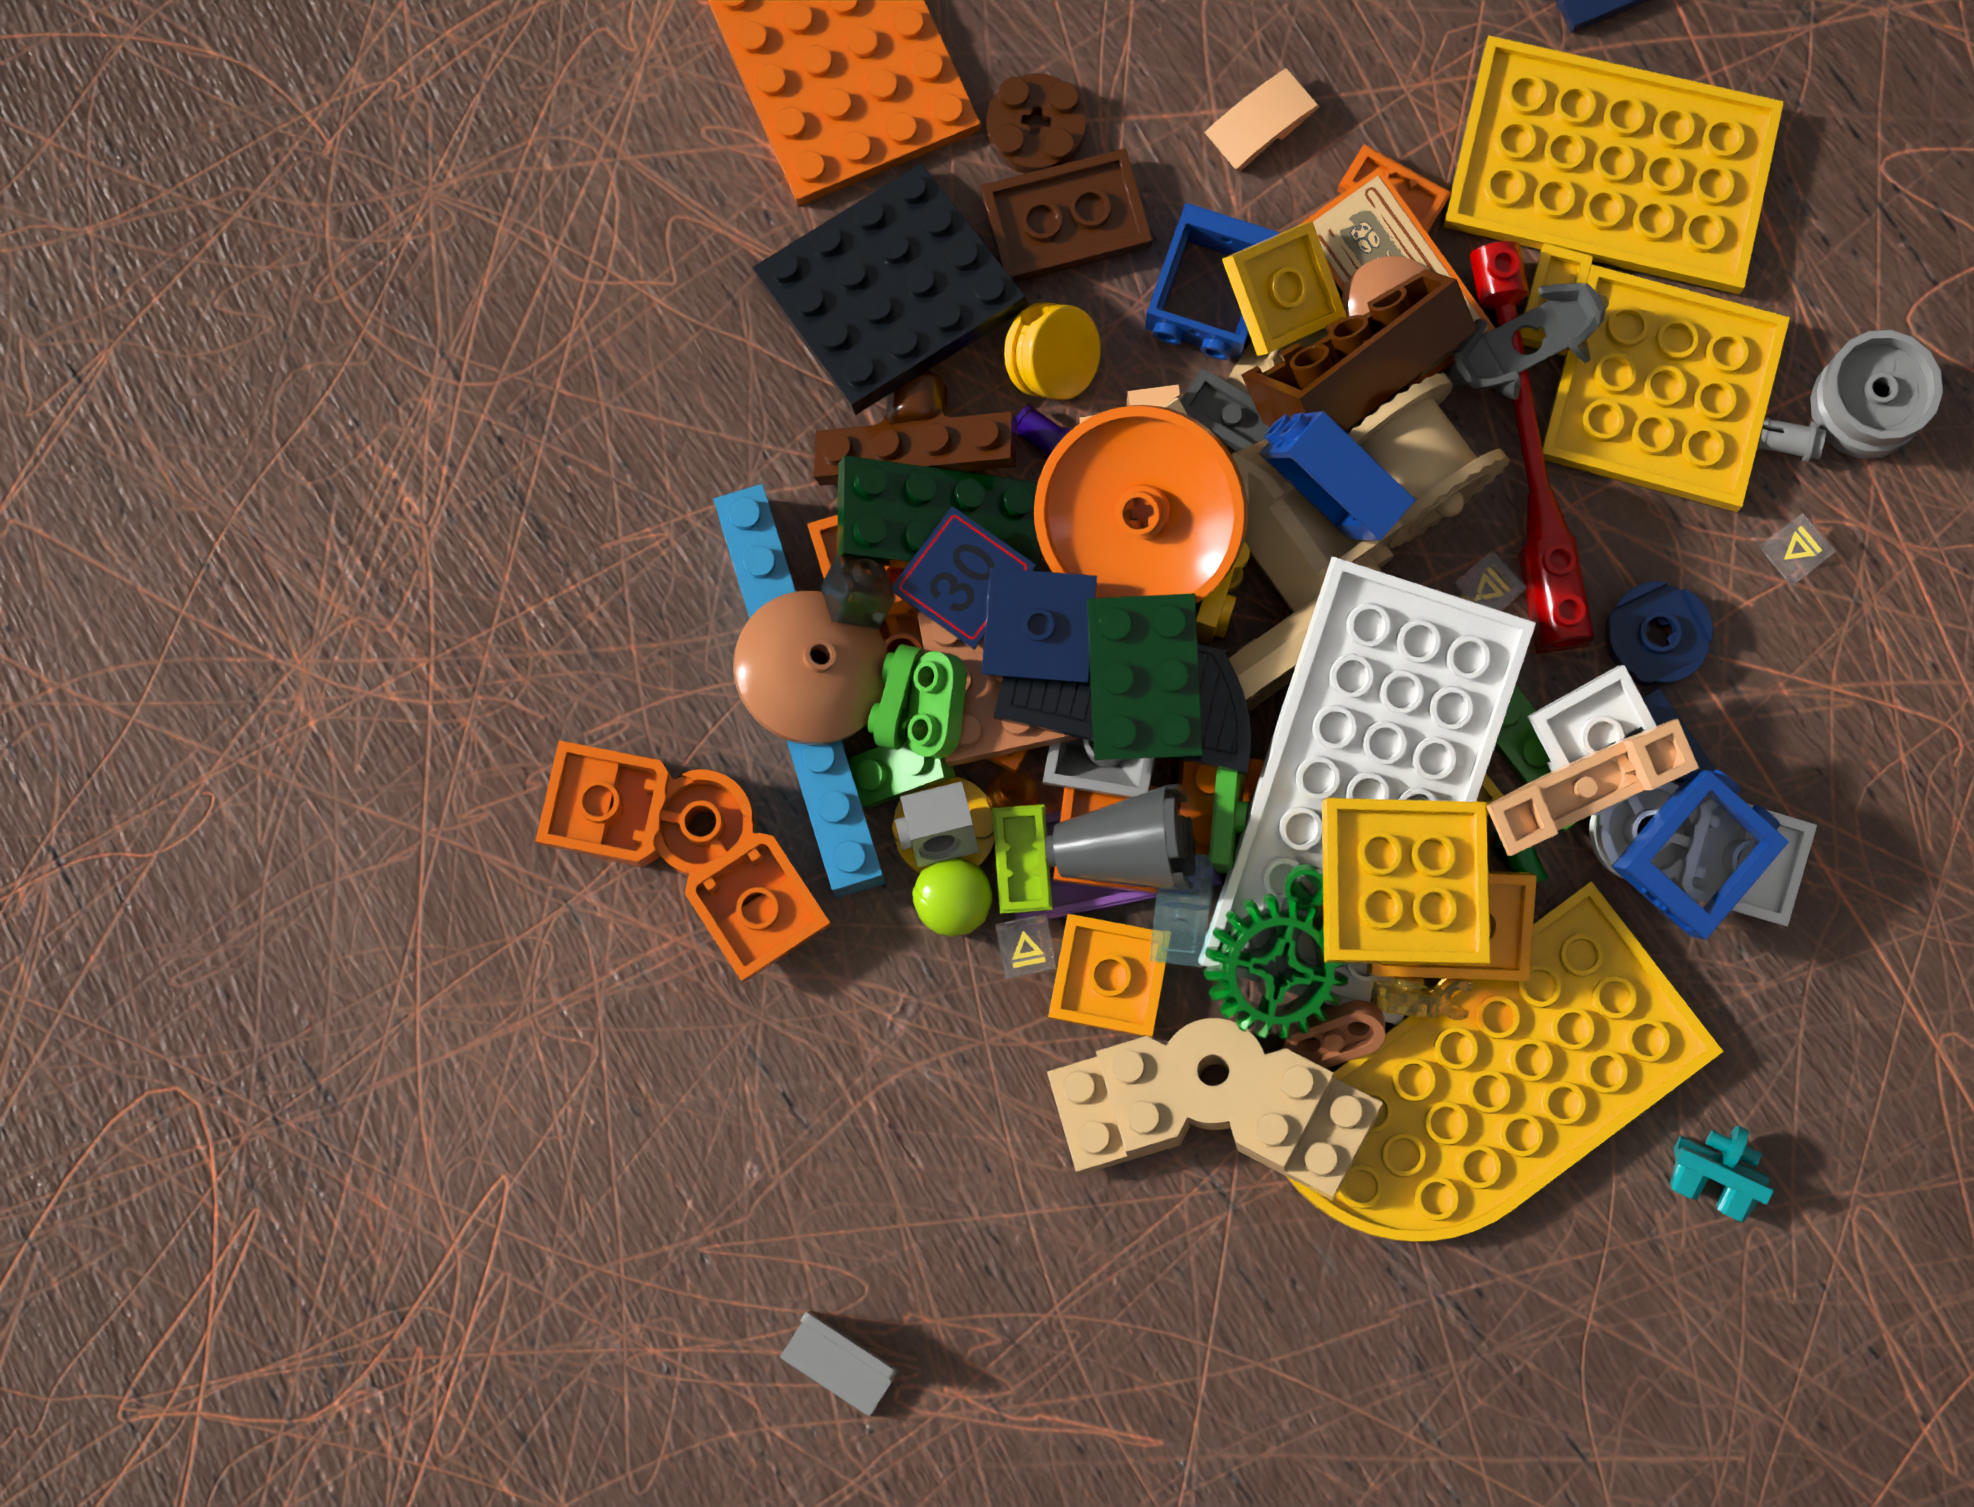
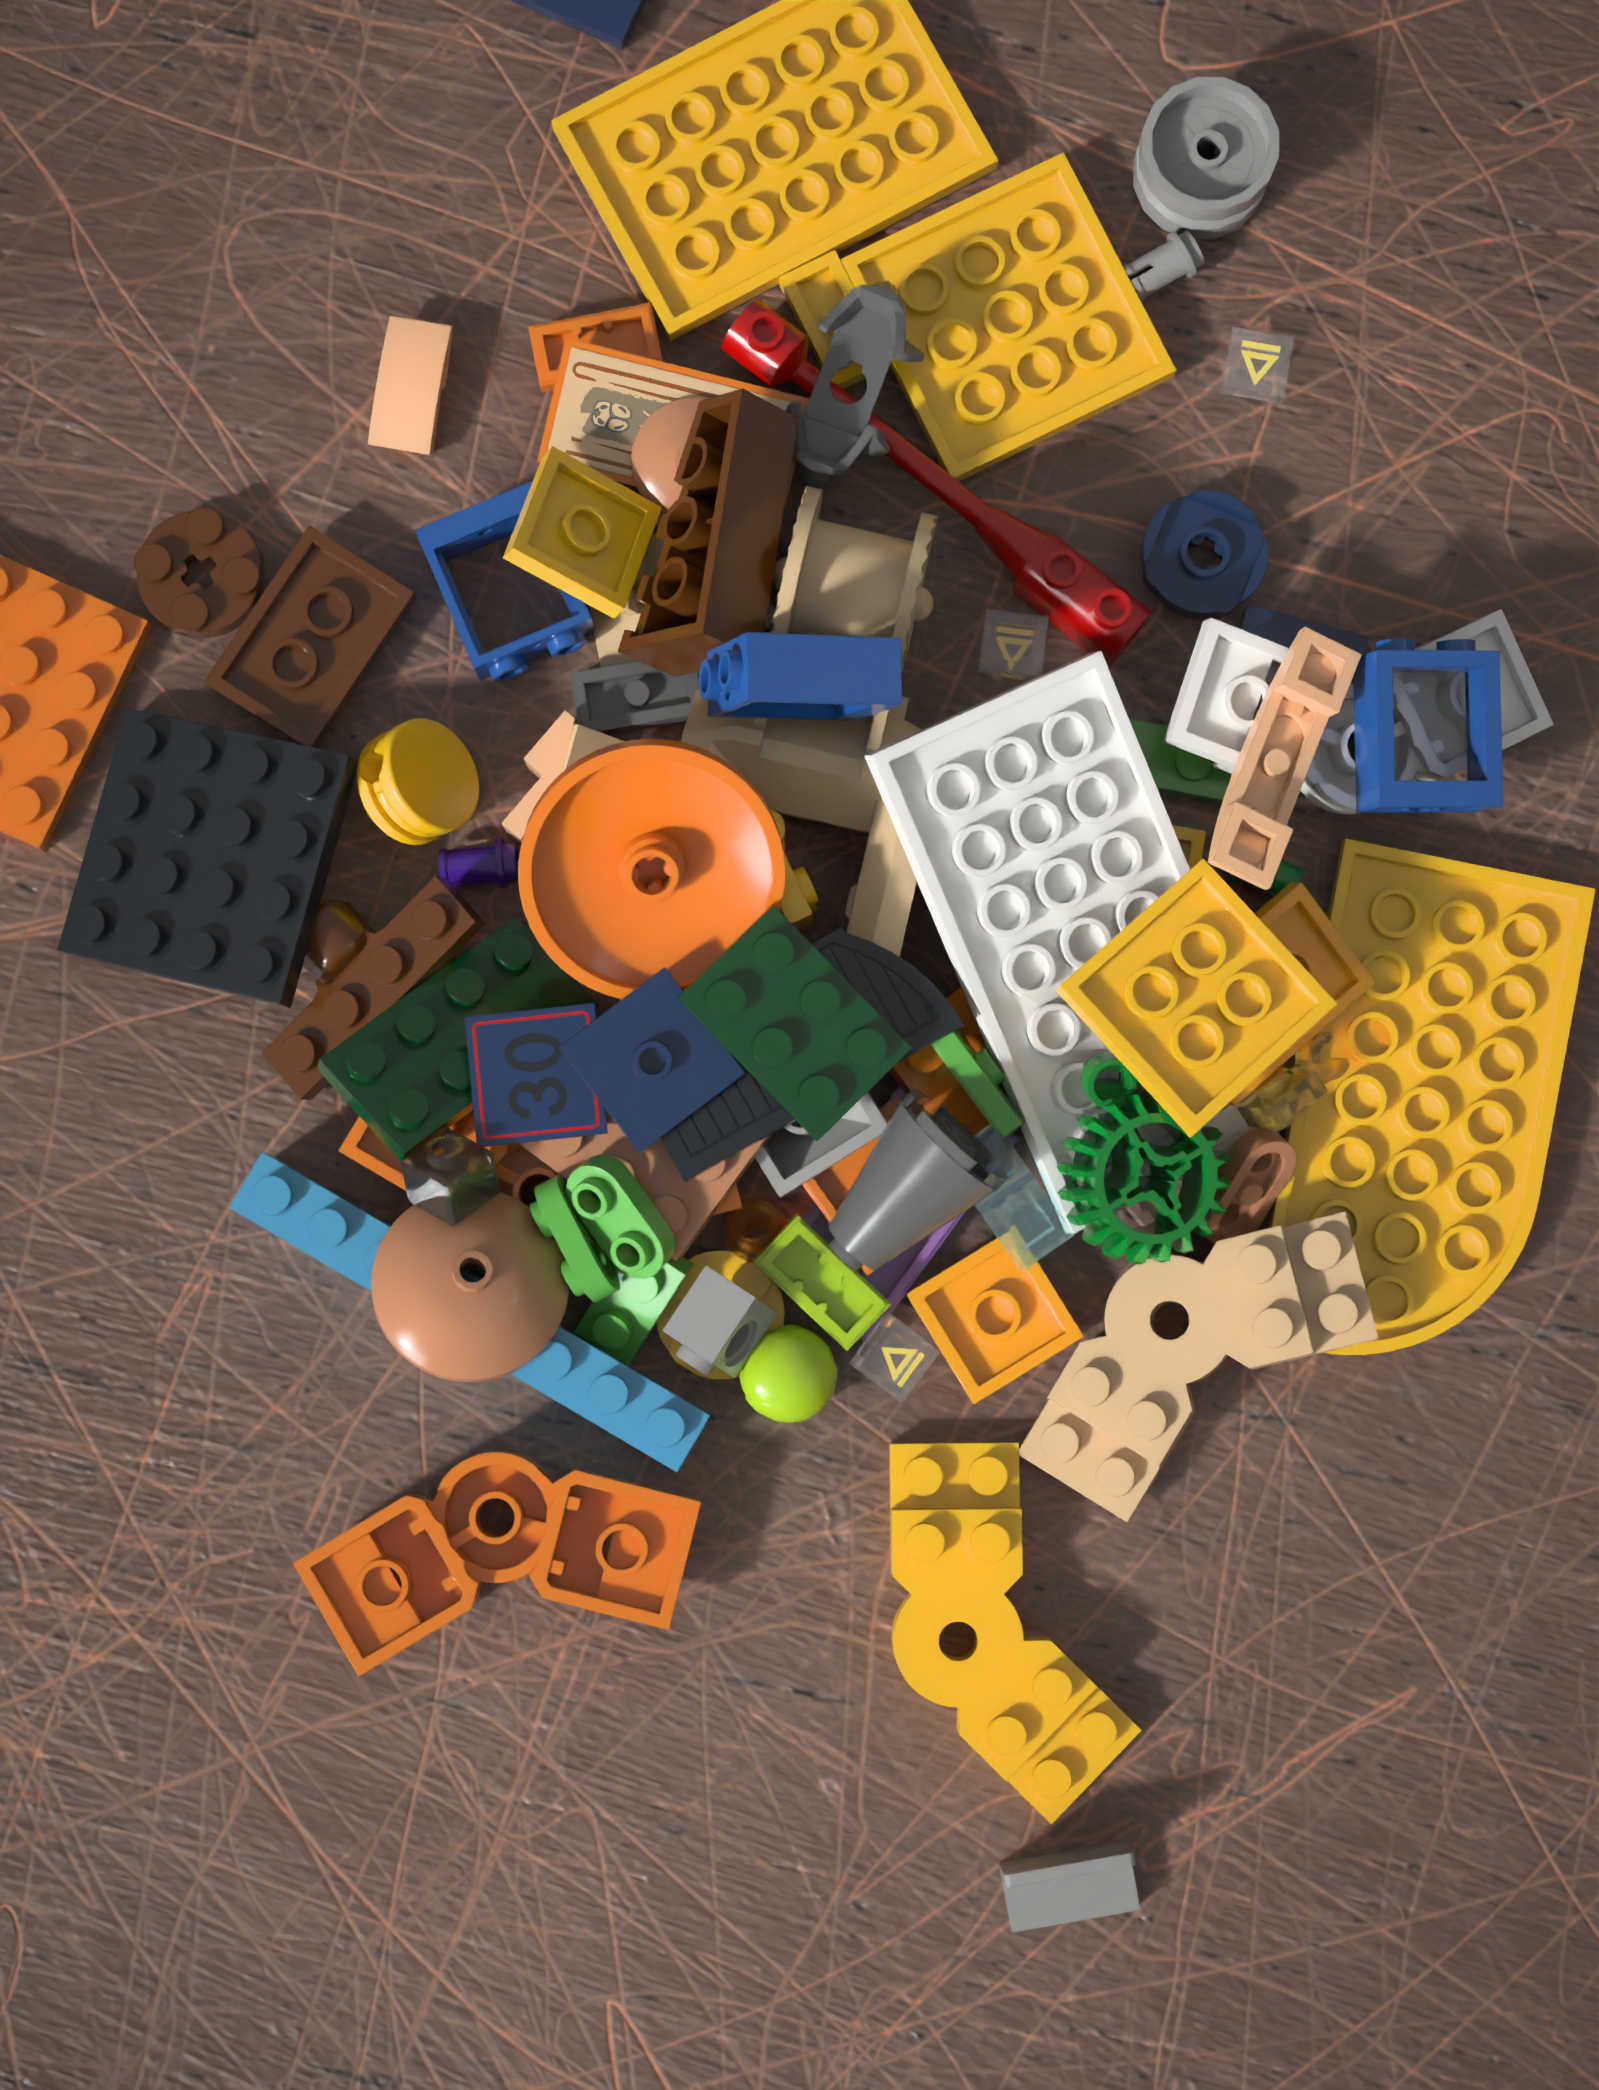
camera: 50 degrees left, 5 degrees up
(911, 1218) = (1013, 1693): none -> yellow plate

